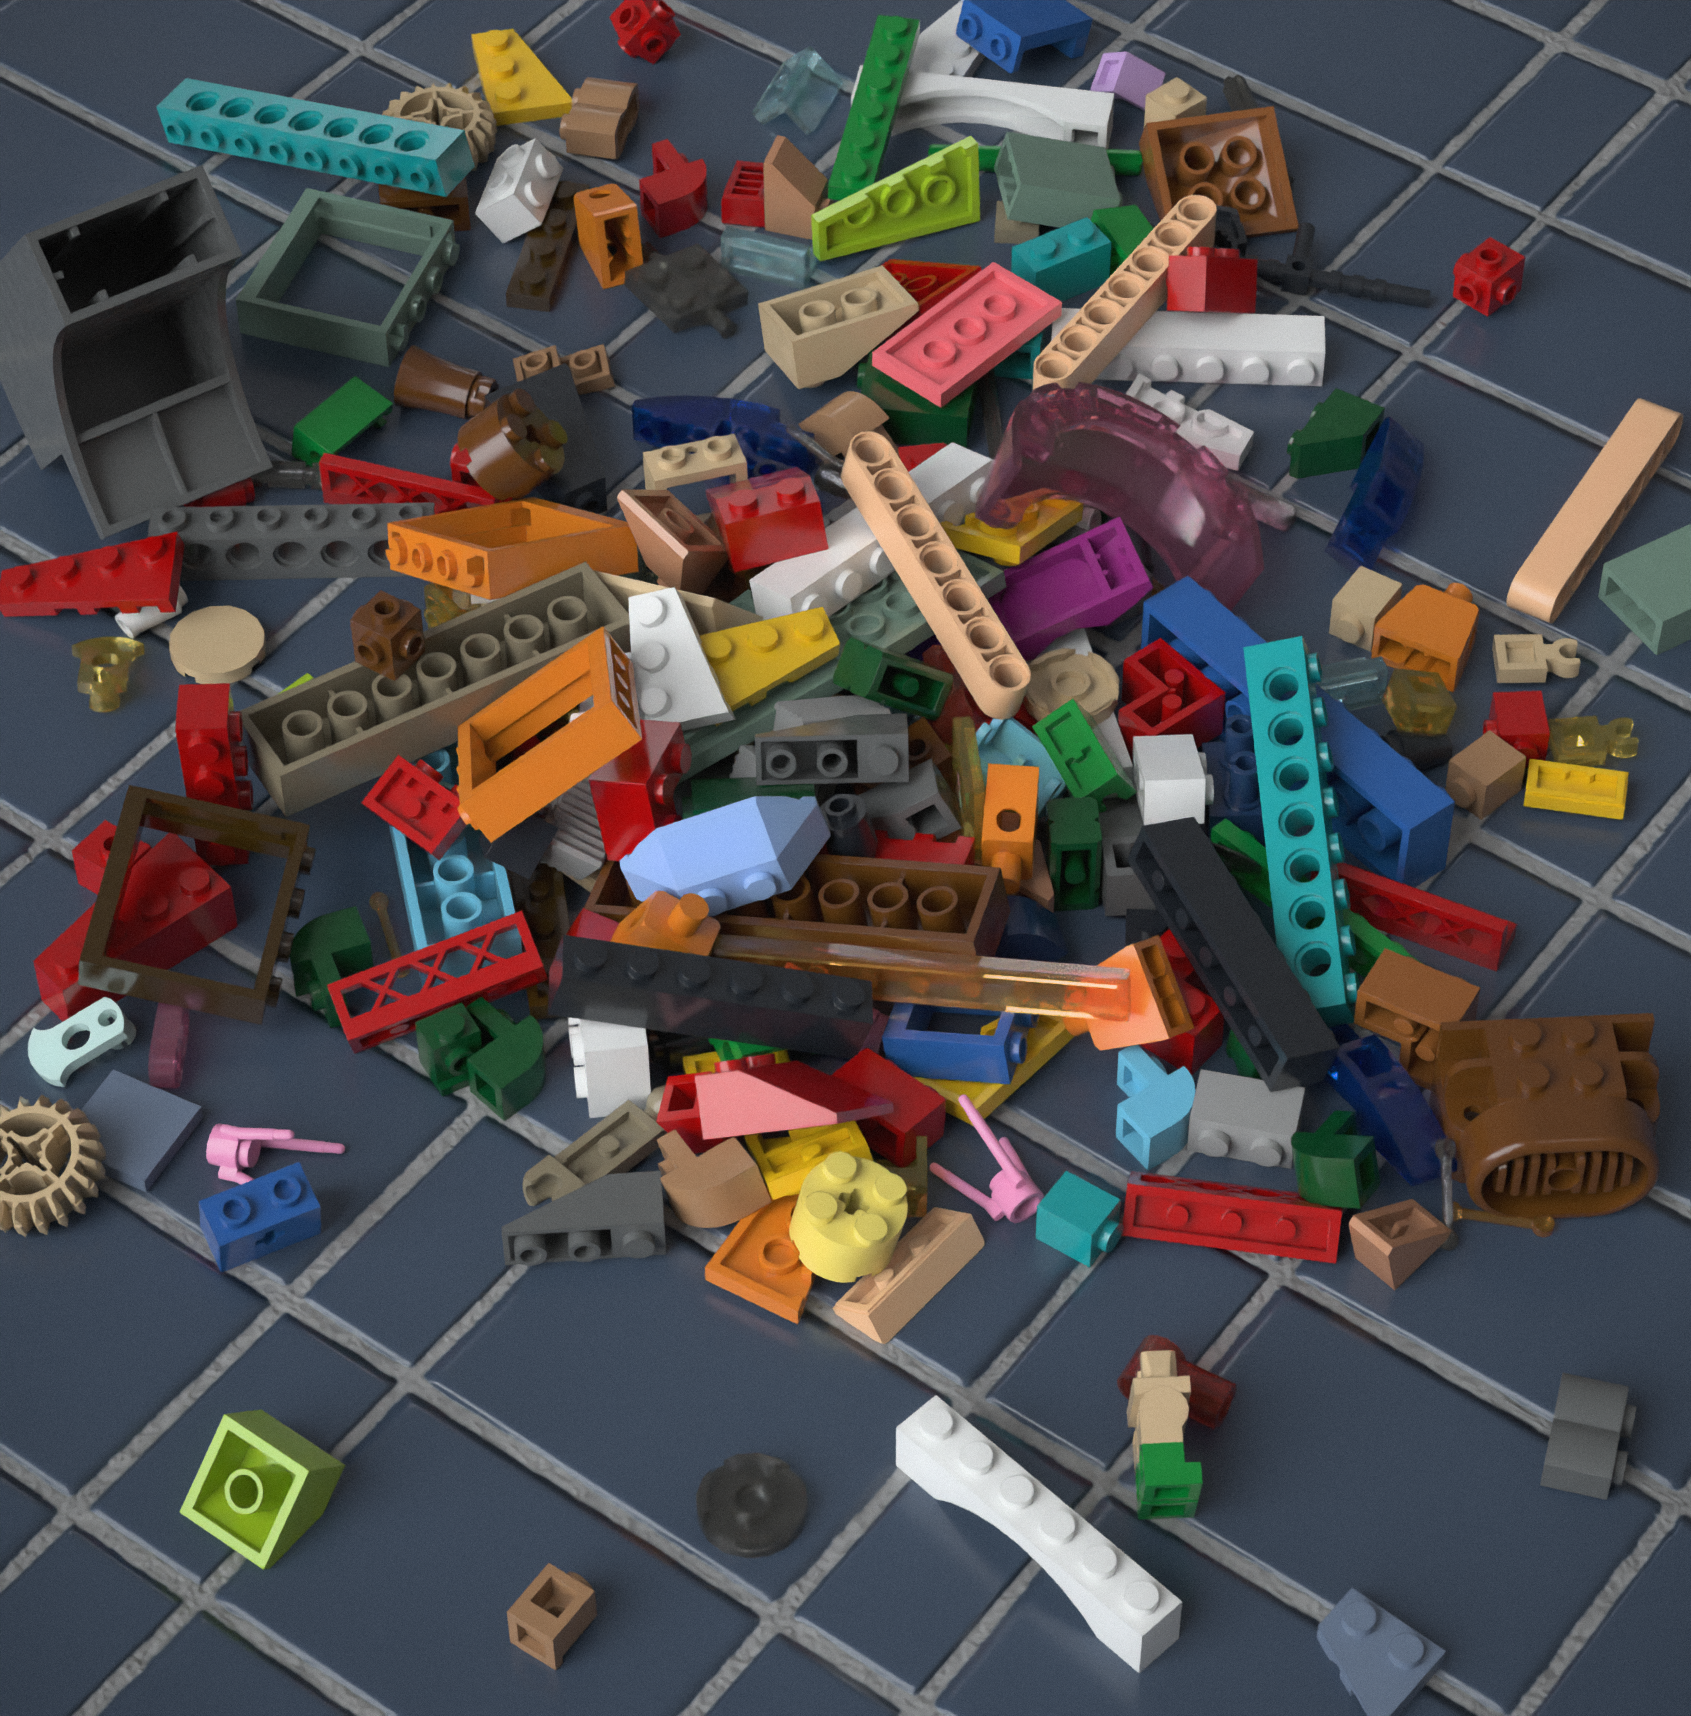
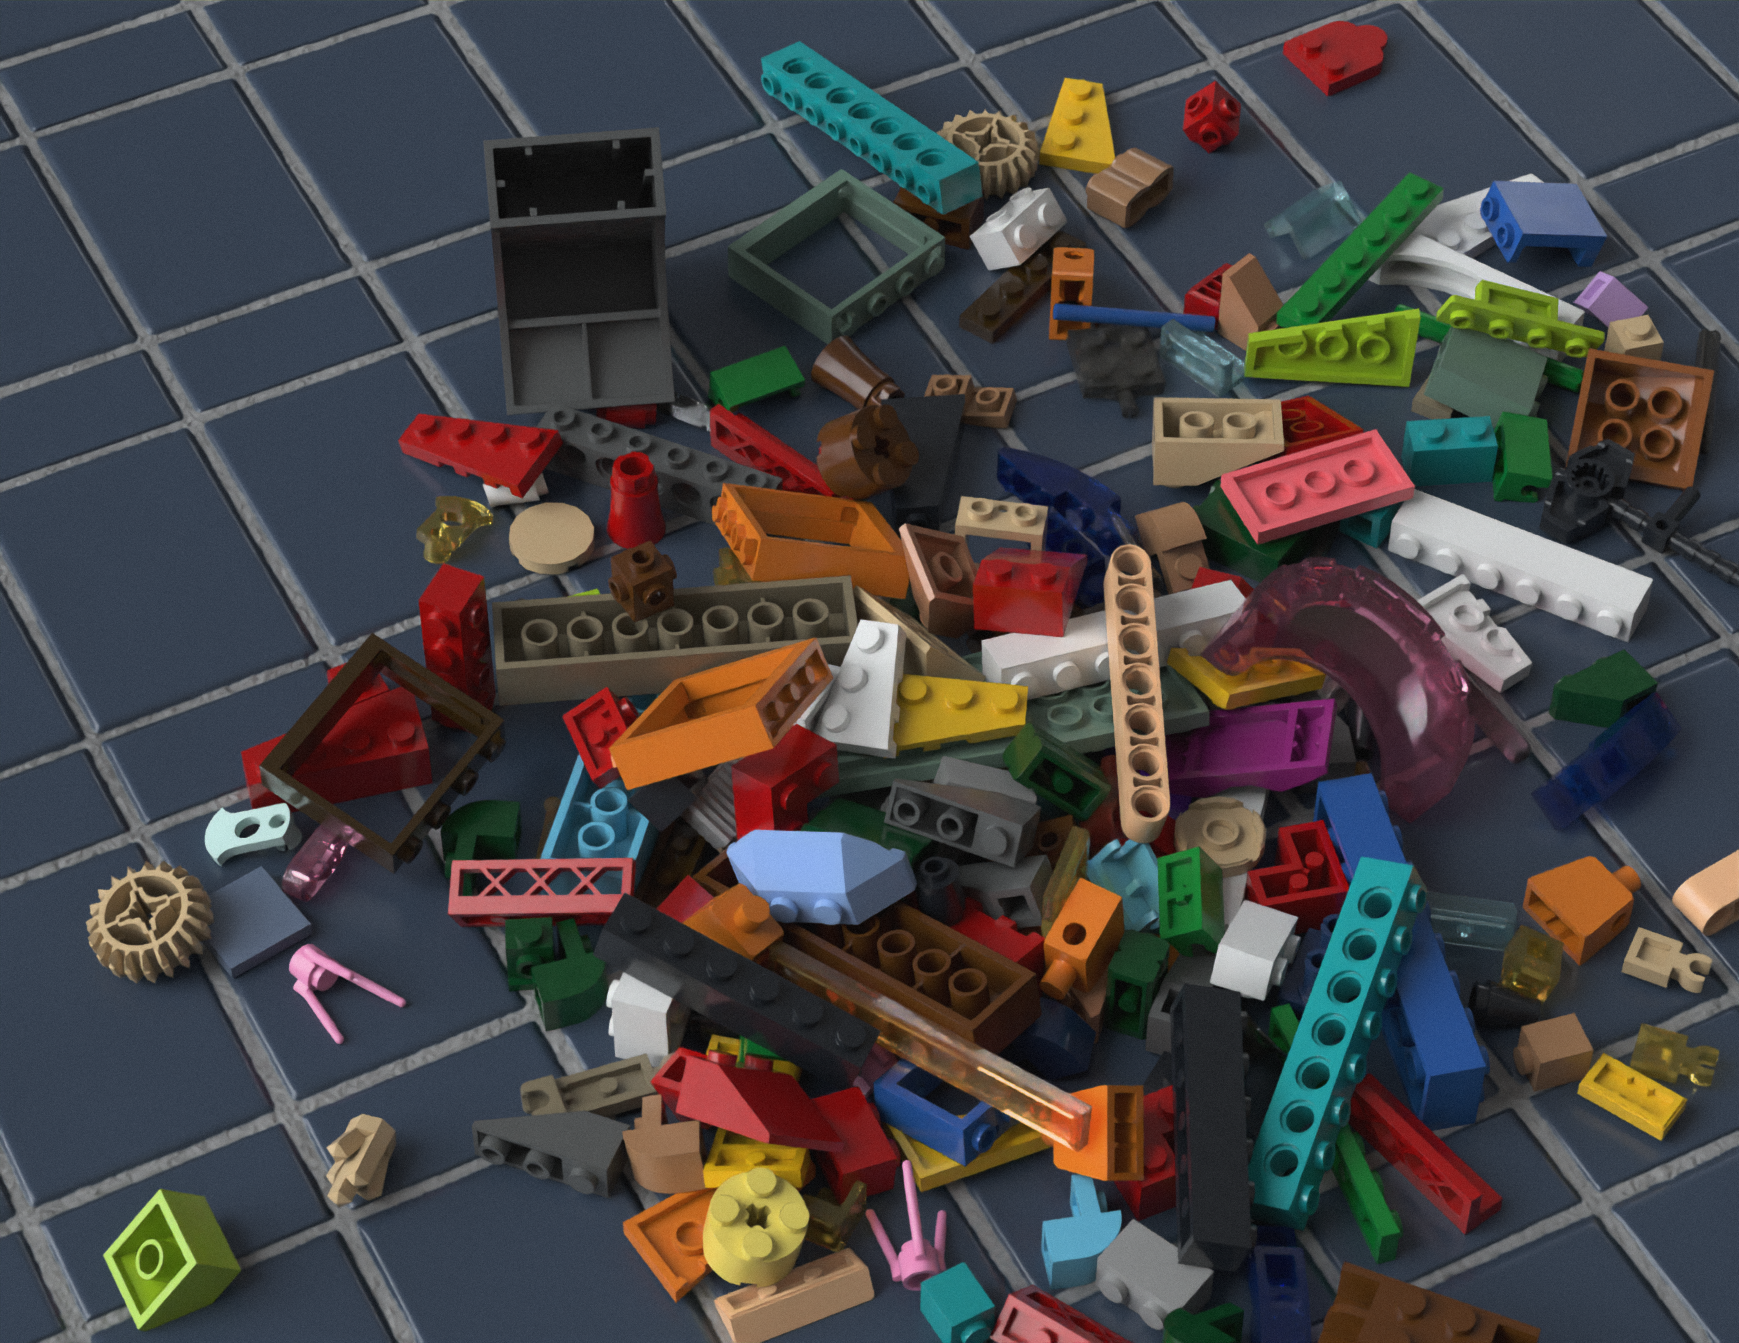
camera: 25 degrees right, 0 degrees up
(260, 1217) = (296, 1035): blue brick -> none
(292, 579) = (635, 502): none -> red plant
(398, 1312) = (360, 1159): none -> tan rock
(675, 192) = (1153, 277): red brick -> none
(680, 239) = (1131, 317): none -> blue bar
(1067, 115) = (1519, 316): none -> lime bracket
(1125, 298) = (1474, 503): light nougat beam -> none
(1212, 281) = (1560, 515): red brick -> none
(1361, 605) = (1533, 853): tan brick -> none
(1408, 1005) = (1342, 1226): dark orange brick -> none
(1520, 722) = (1610, 1019): red brick -> none

